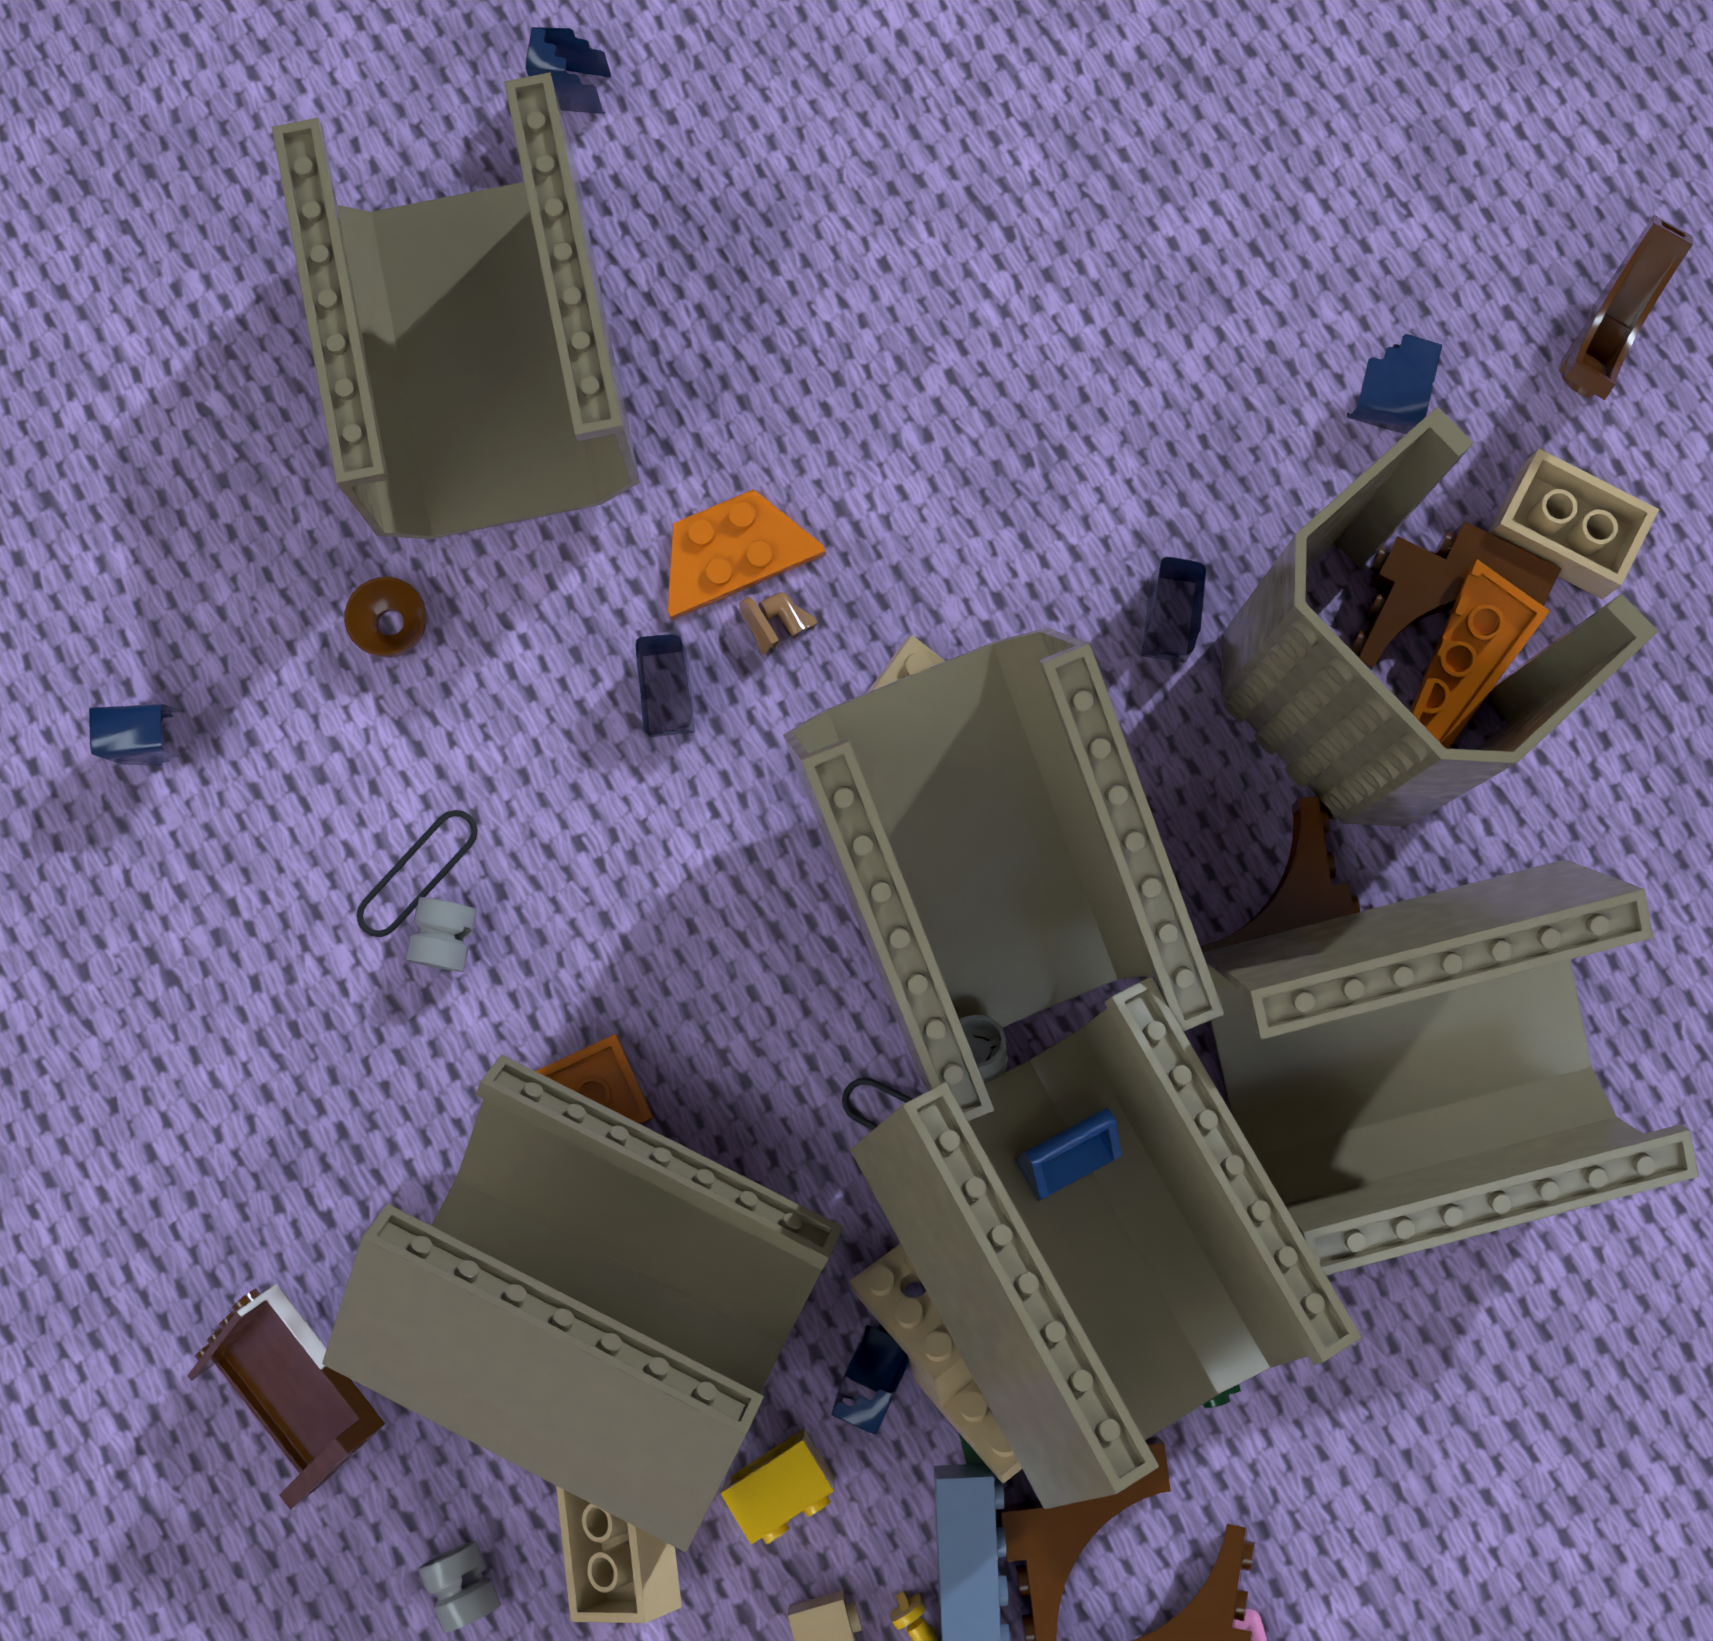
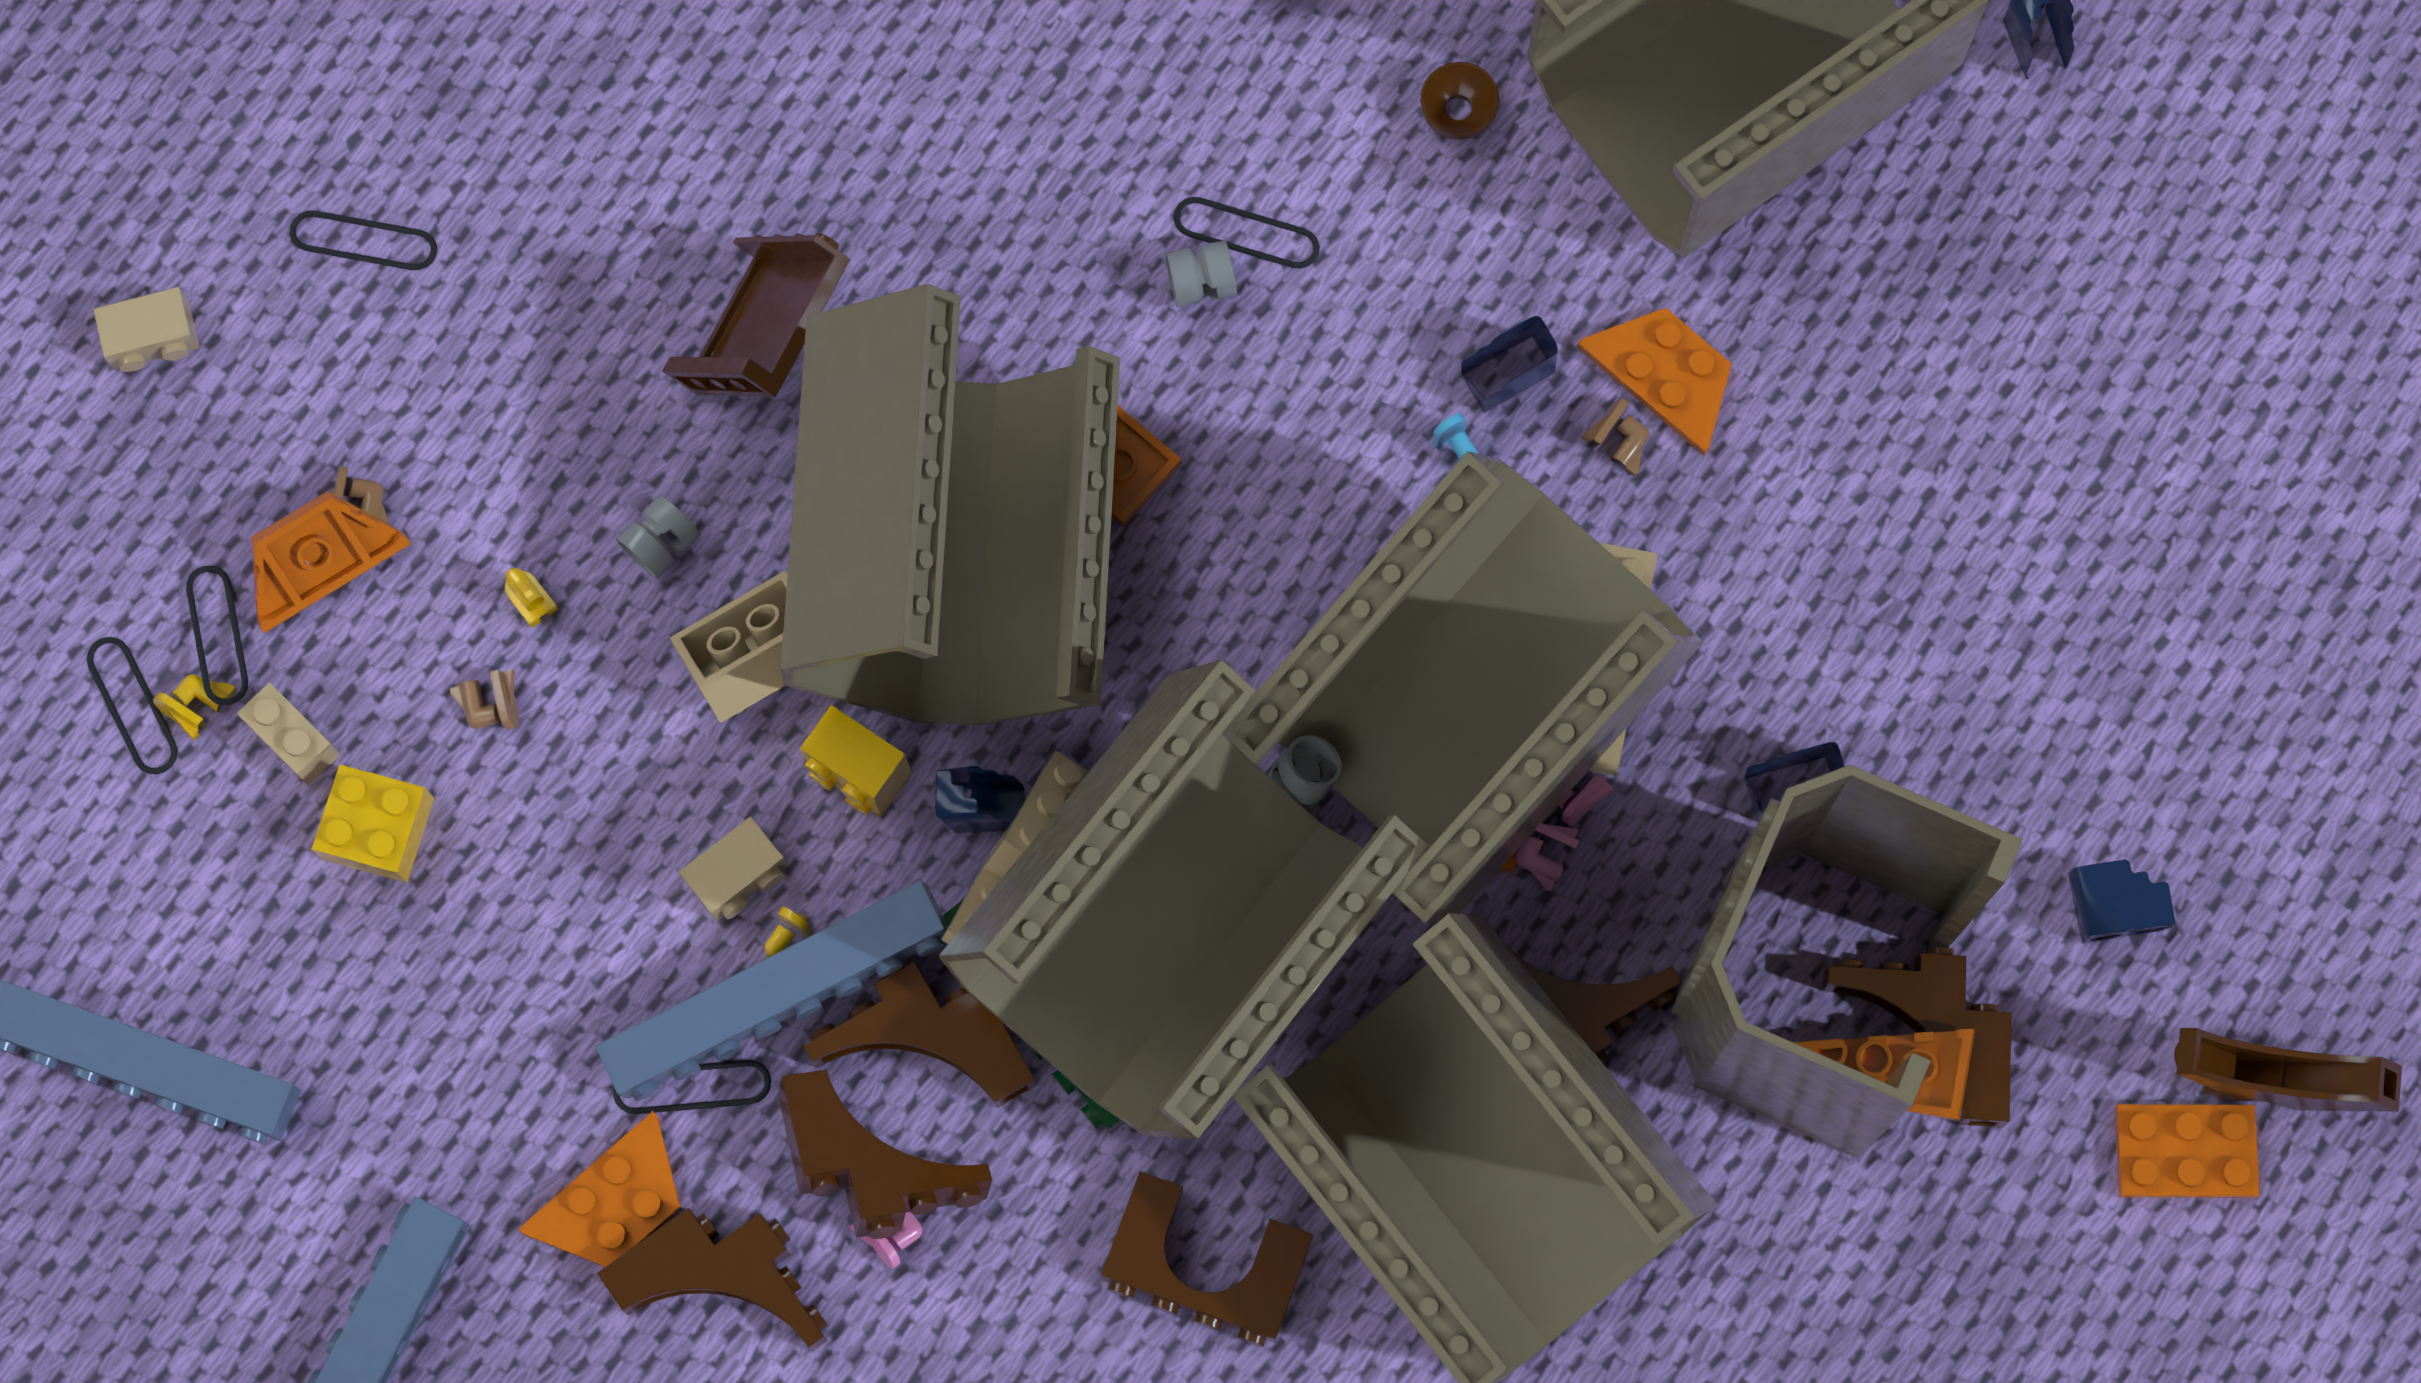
camera: 70 degrees right, 5 degrees down
(730, 765) = (1453, 432): none -> medium azure piece
(1071, 1154) = (1250, 879): blue tile -> none
(1454, 1328) = (1252, 1305): none -> reddish brown arch
(1574, 522) = (2060, 1116): tan brick -> none
(1636, 431) = (2186, 1151): none -> orange plate

